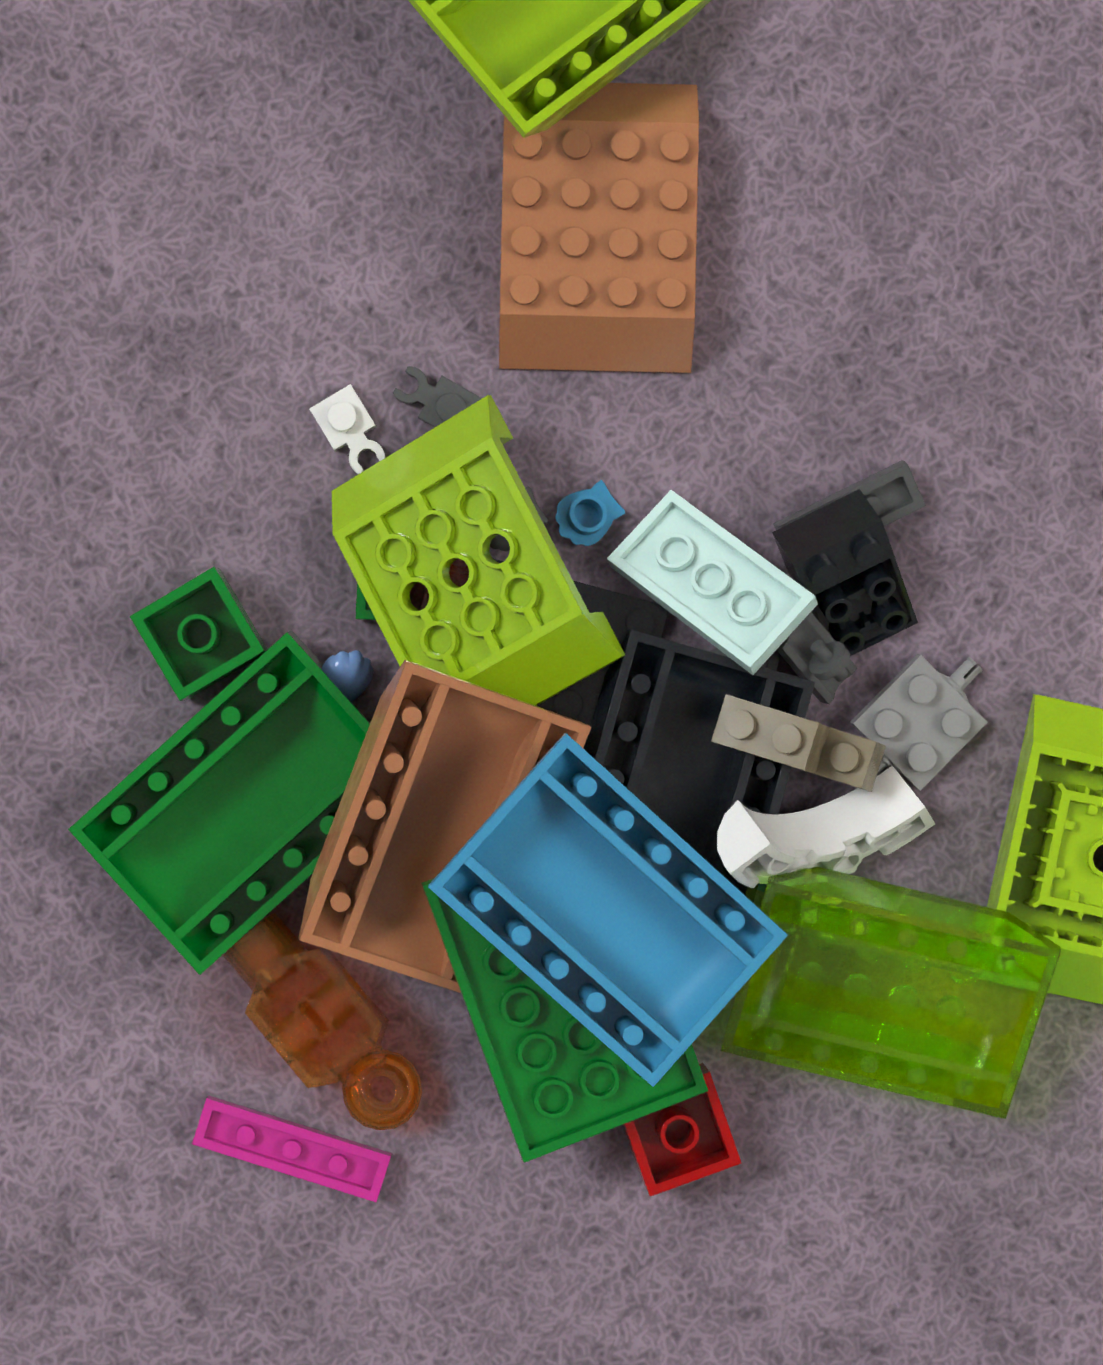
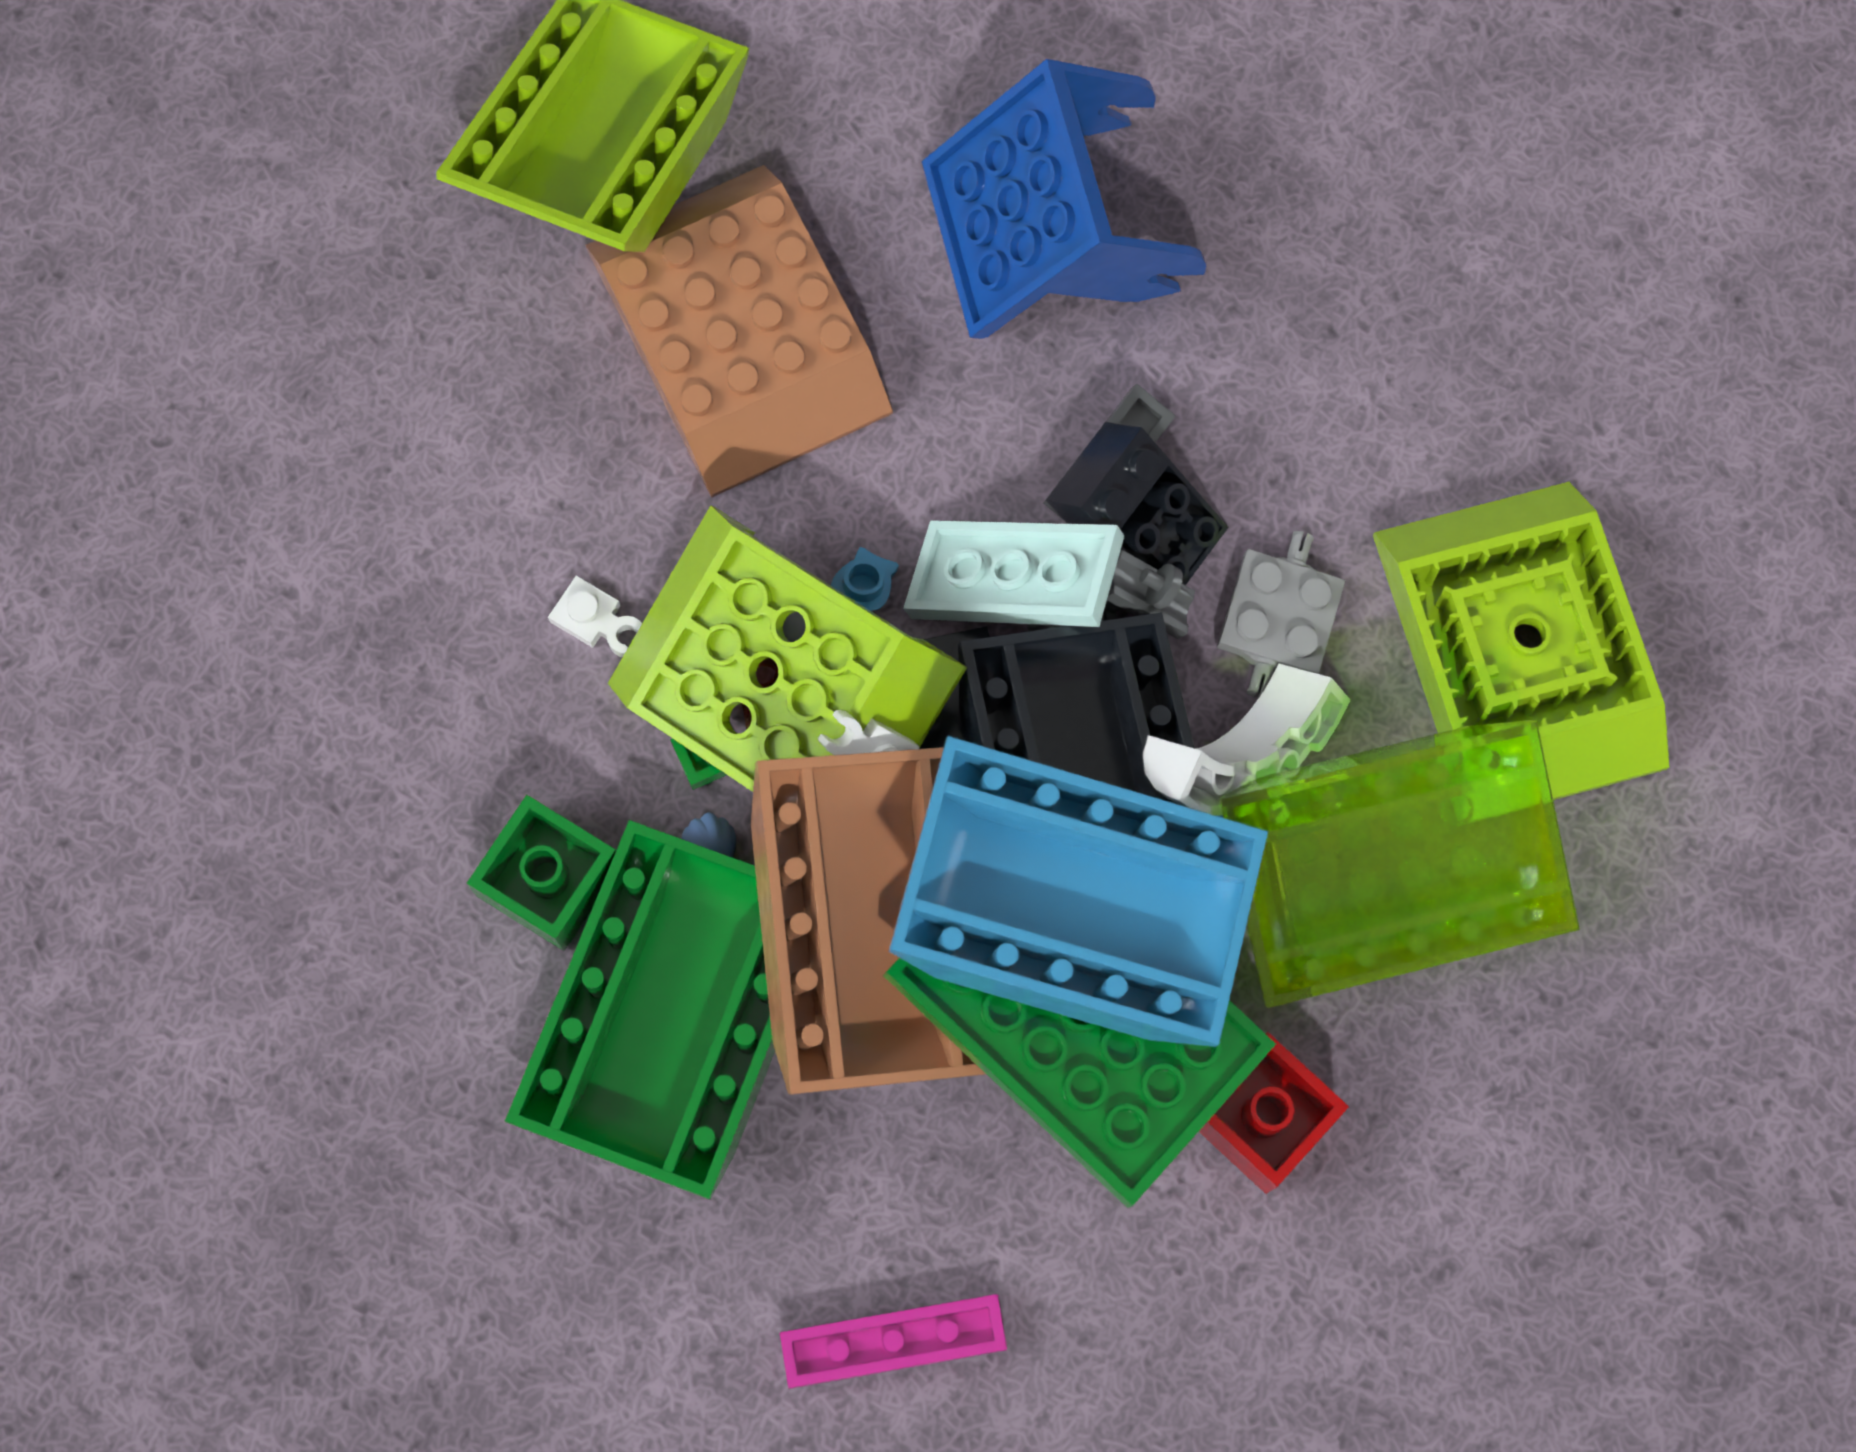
camera: 25 degrees left, 15 degrees down
(322, 1022) = (858, 1189): clear orange brick -> none
(439, 401) = (660, 552): dark grey plate -> none
(513, 681) = (874, 738): none -> white plate
(798, 743) = (1179, 669): dark tan arch -> none
(897, 253) = (1027, 207): none -> blue piece

